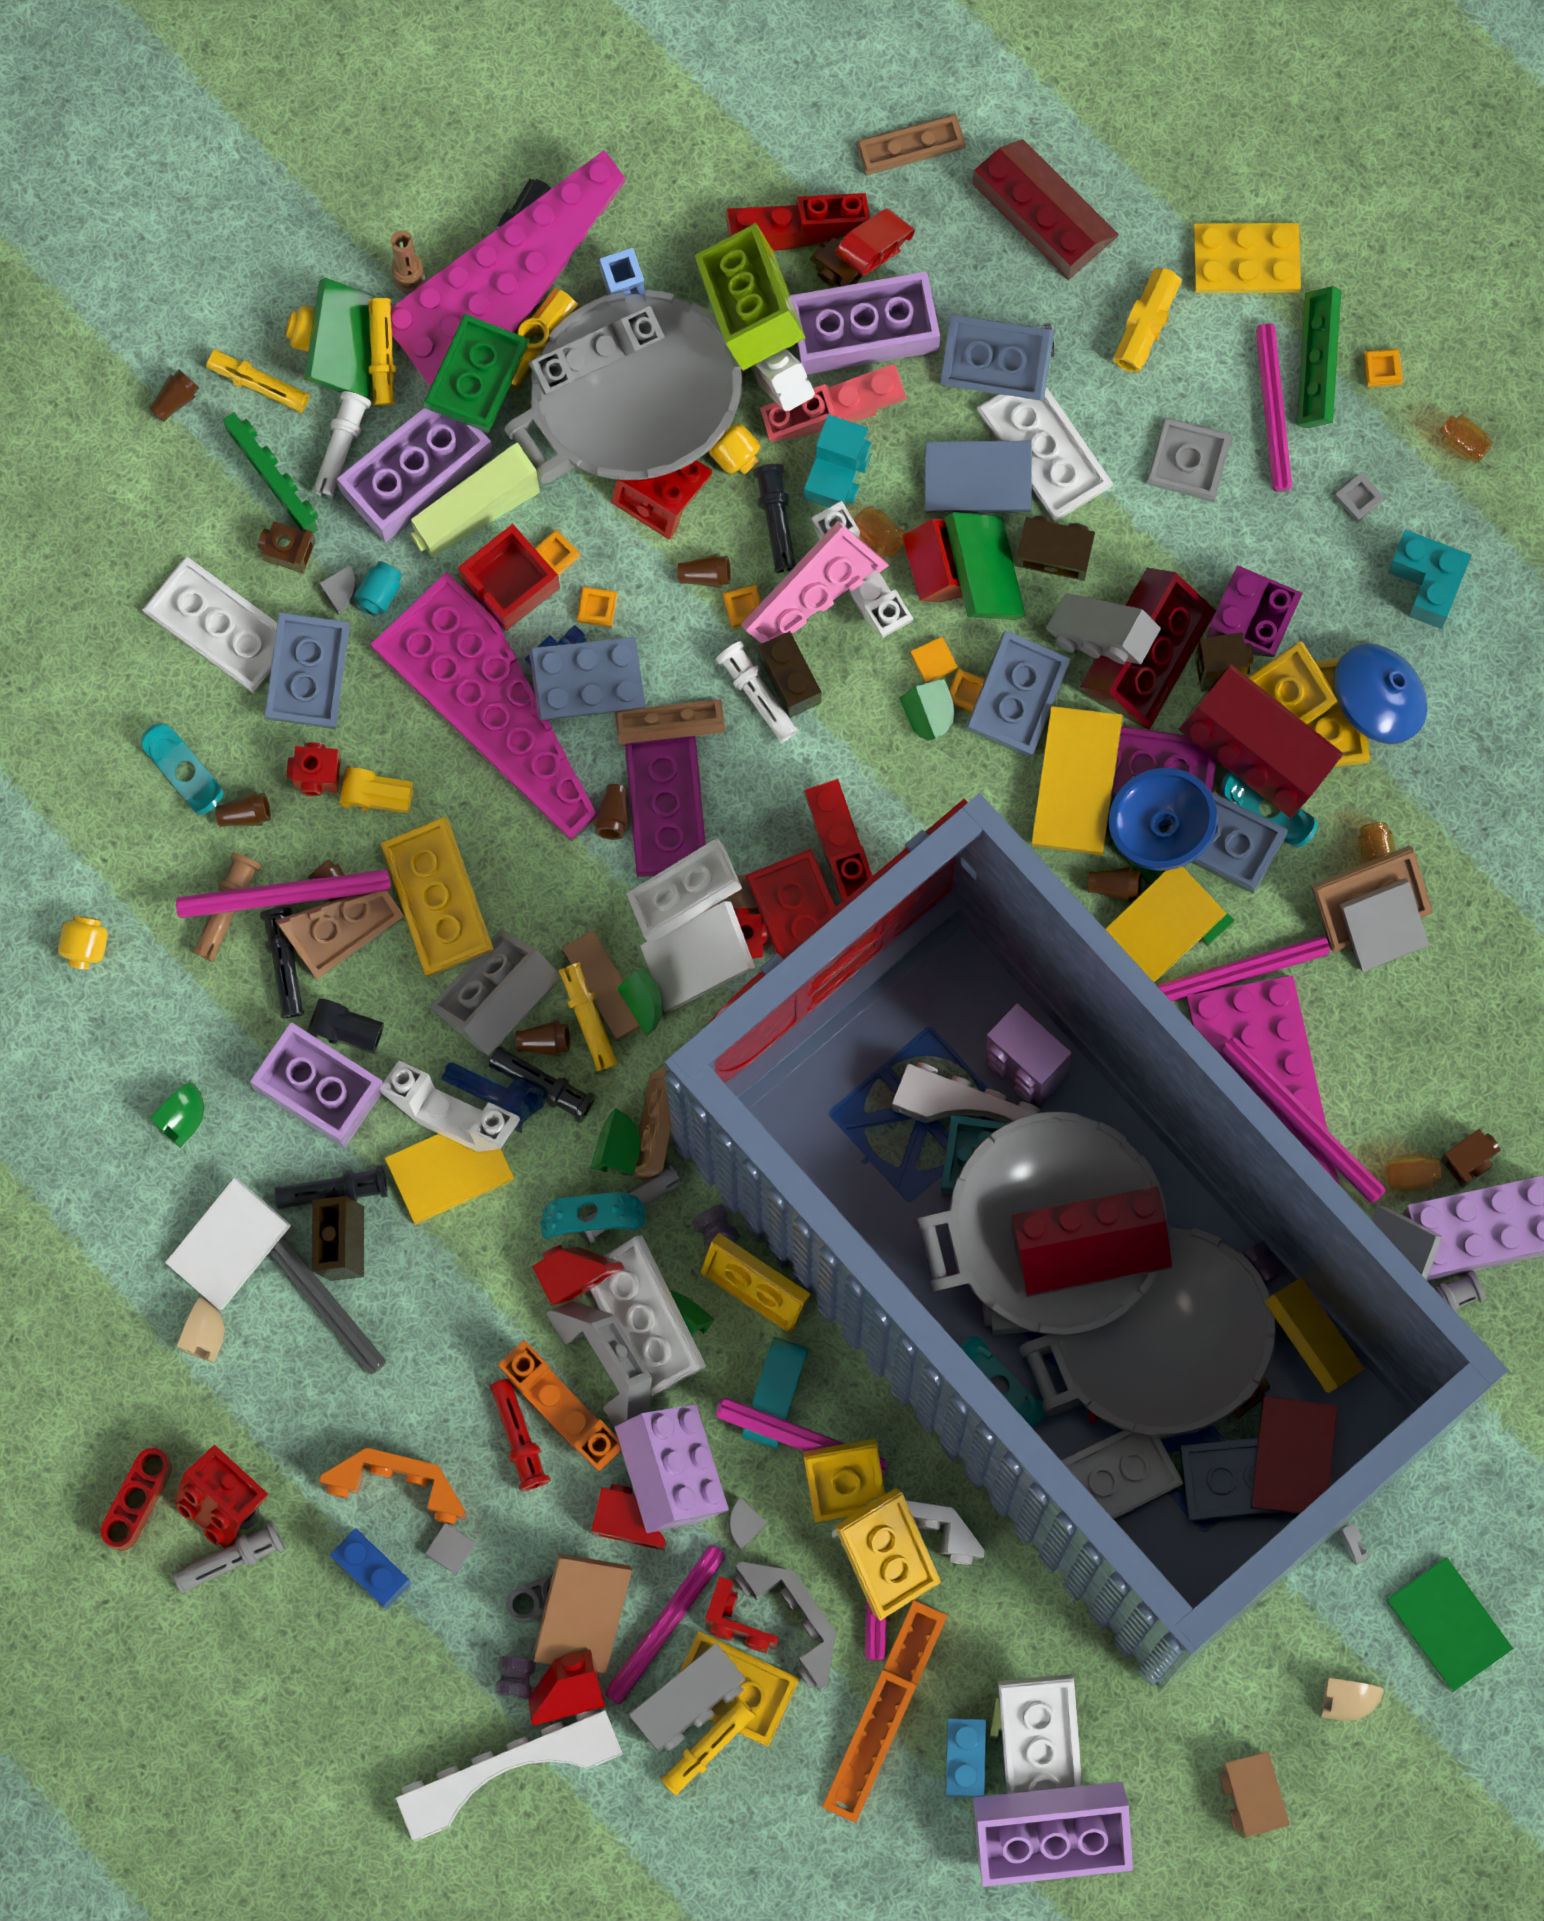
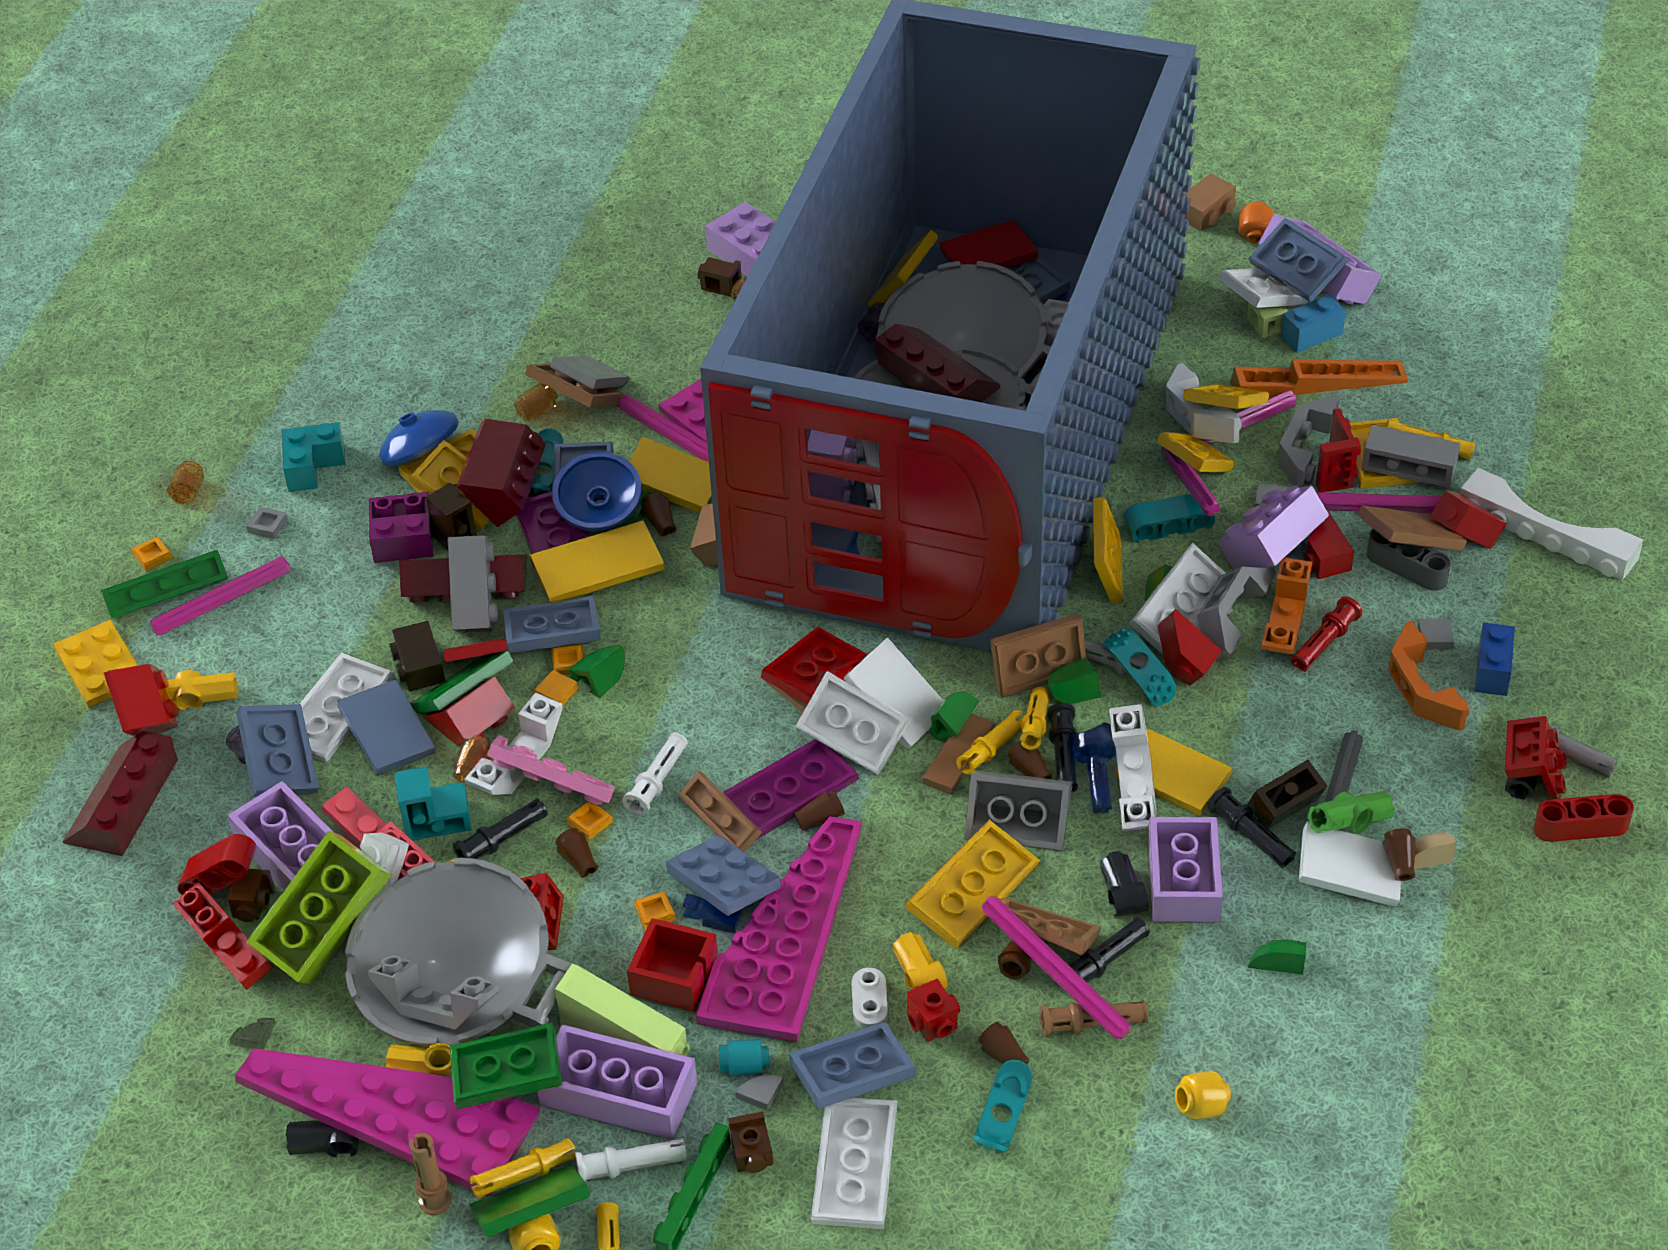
camera: 120 degrees left, 30 degrees down
(203, 1290) = (1400, 850): none -> reddish brown cone
(273, 1276) = (1351, 812): none -> bright green piece
(374, 734) = (869, 996): none -> white plate
(517, 1669) = (1484, 553): clear purple wheel -> none
(558, 551) = (620, 959): light orange tile -> none
(574, 1060) = (1034, 722): none -> yellow pin
(622, 273) = (347, 1021): light blue brick -> none
(680, 209) = (254, 1035): none -> clear smoke tile
(714, 1222) = (1086, 598): clear purple wheel -> none
(789, 674) = (629, 755): dark brown brick -> none
(838, 837) = (744, 668): red slope -> none
(911, 144) = (106, 909): medium nougat tile -> none
(1019, 597) = (475, 649): none -> red tile
(1040, 1780) = (1298, 259): none -> sand blue tile
(1133, 254) = (142, 699): none -> red slope
(1181, 1827) = (1254, 220): none -> orange head
(1189, 459) = (293, 623): light grey tile -> none

